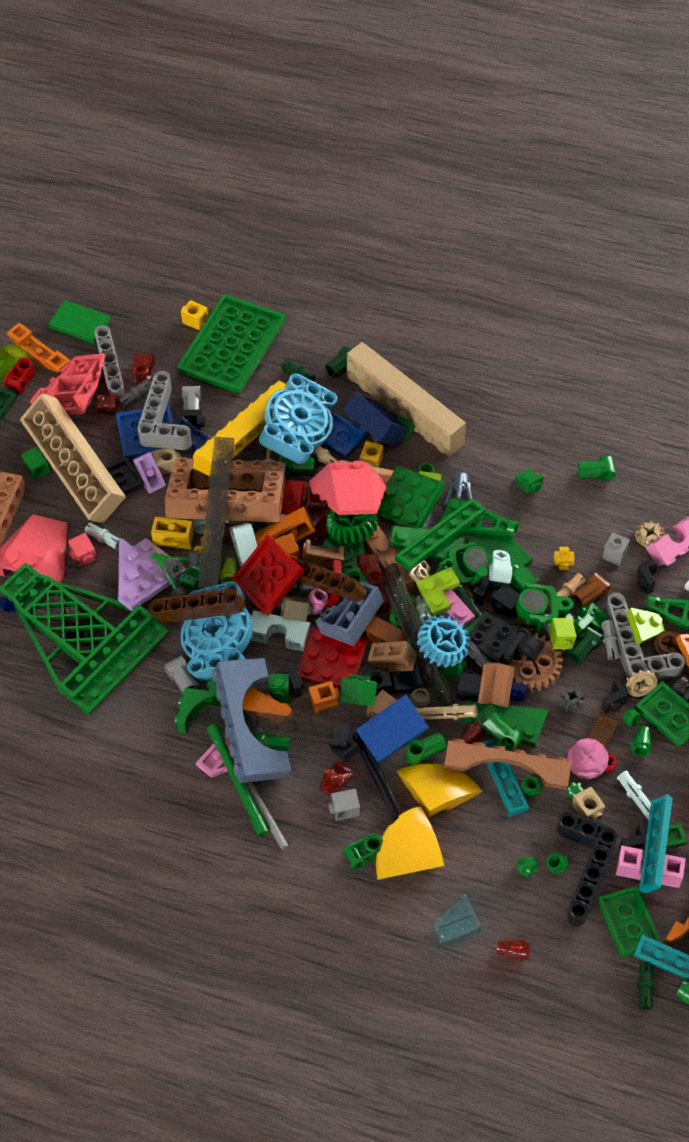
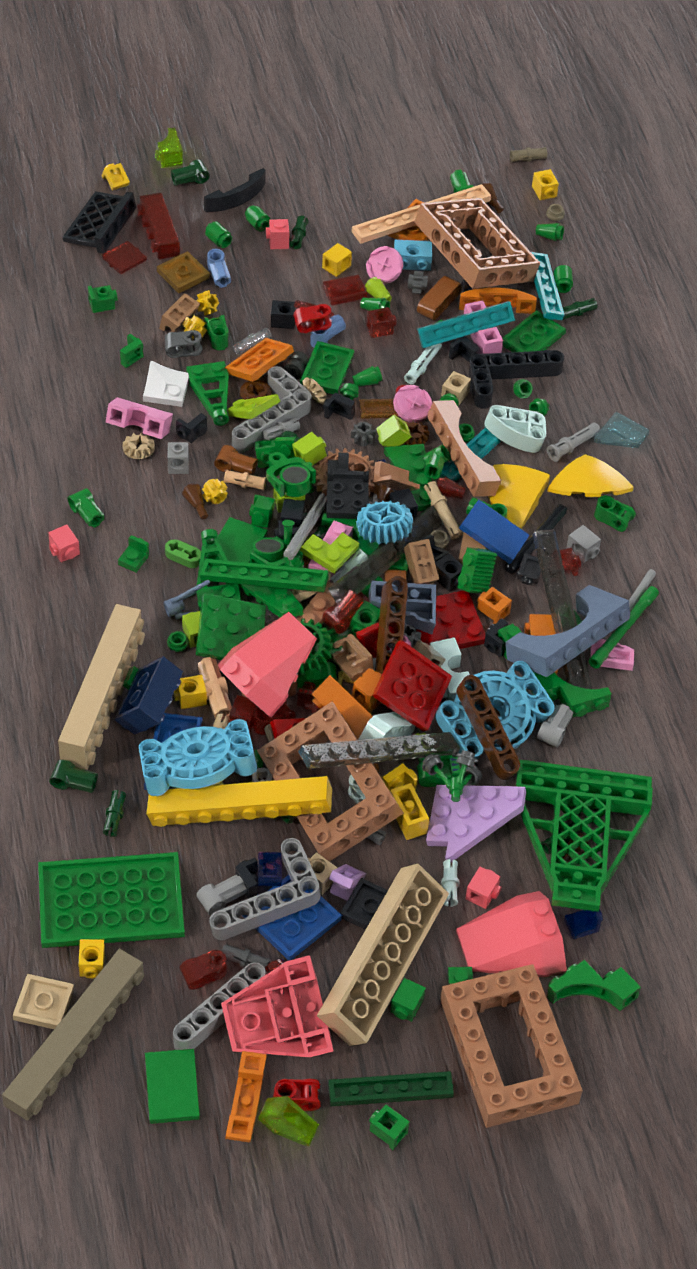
camera: 125 degrees left, 5 degrees down
(29, 504) = (459, 974): none -> green plate
(149, 287) = (73, 1035): none -> dark tan brick
(183, 282) = (43, 1001): none -> tan plate
(469, 861) = (567, 444): none -> light grey pin
(472, 584) = (305, 528): none -> light grey axle
(500, 825) = (517, 427): none -> light aqua beam
(501, 568) = (268, 521): light aqua piece -> none
(511, 511) = (183, 553): none -> bright green beam
(514, 949) = (614, 389): clear red cone -> none
(551, 752) = (420, 437): none -> reddish brown gear
(557, 719) = (393, 432): none -> lime brick
(565, 439) = (63, 543): none -> coral brick
(571, 542) = (193, 495): none -> reddish brown cone

